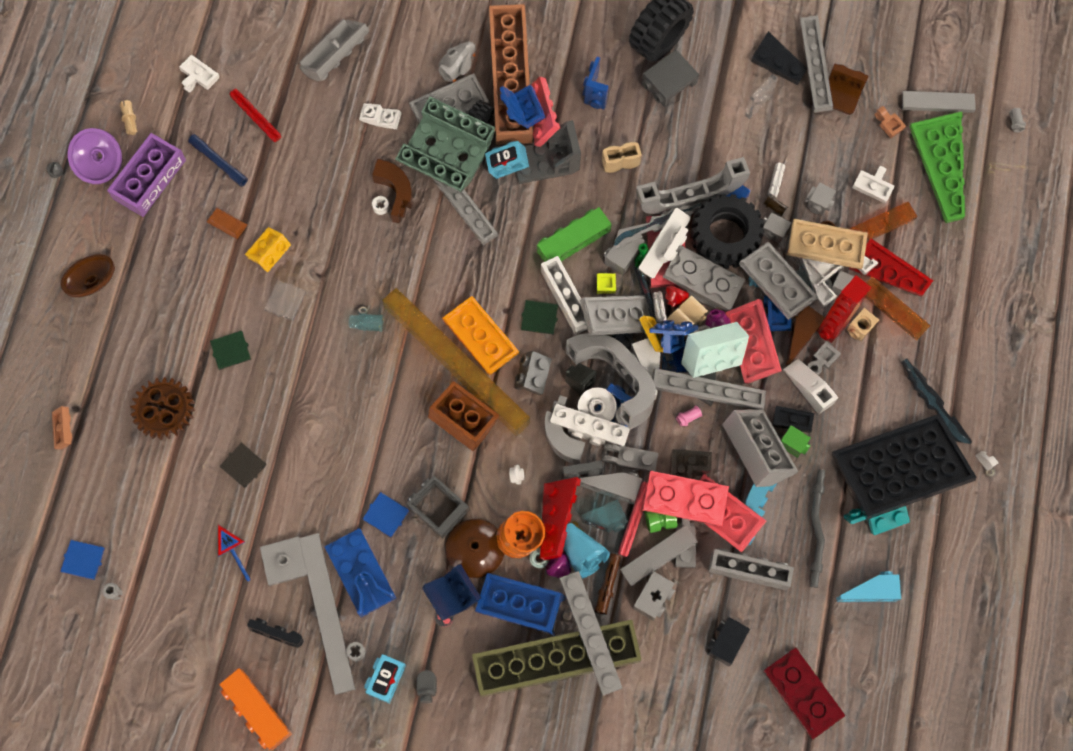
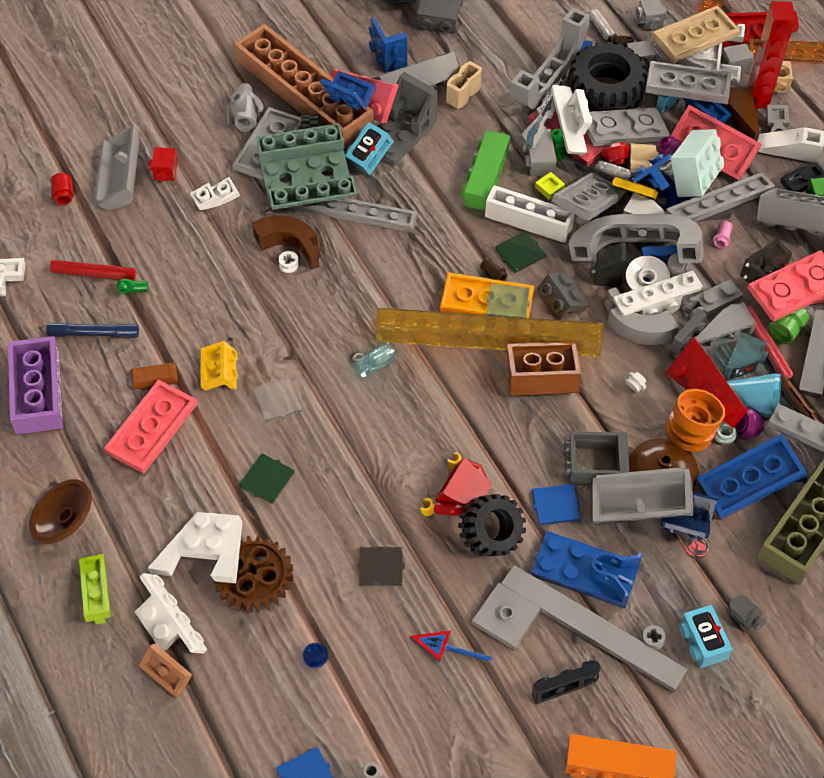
camera: 40 degrees left, 15 degrees down
(67, 341) = (95, 588): none -> lime hinge
(91, 395) = (164, 618): none -> white bracket
(152, 490) = (315, 655): none -> clear blue plate
(157, 363) = (205, 537): none -> white wing
(192, 258) = (150, 426): none -> coral plate
(268, 146) = (128, 286): none -> green arm
(286, 37) = (62, 188): none -> red brick
(315, 511) = (510, 525): none -> black tyre
(332, 458) = (462, 485): none -> torso
(366, 67) = (163, 164): none -> red brick
(431, 559) = (642, 495): none -> light grey container
(488, 349) = (508, 301): none -> clear light blue piece
(505, 318) = (493, 270): none -> dark brown pin
(598, 123) = (428, 71): none -> light grey slope

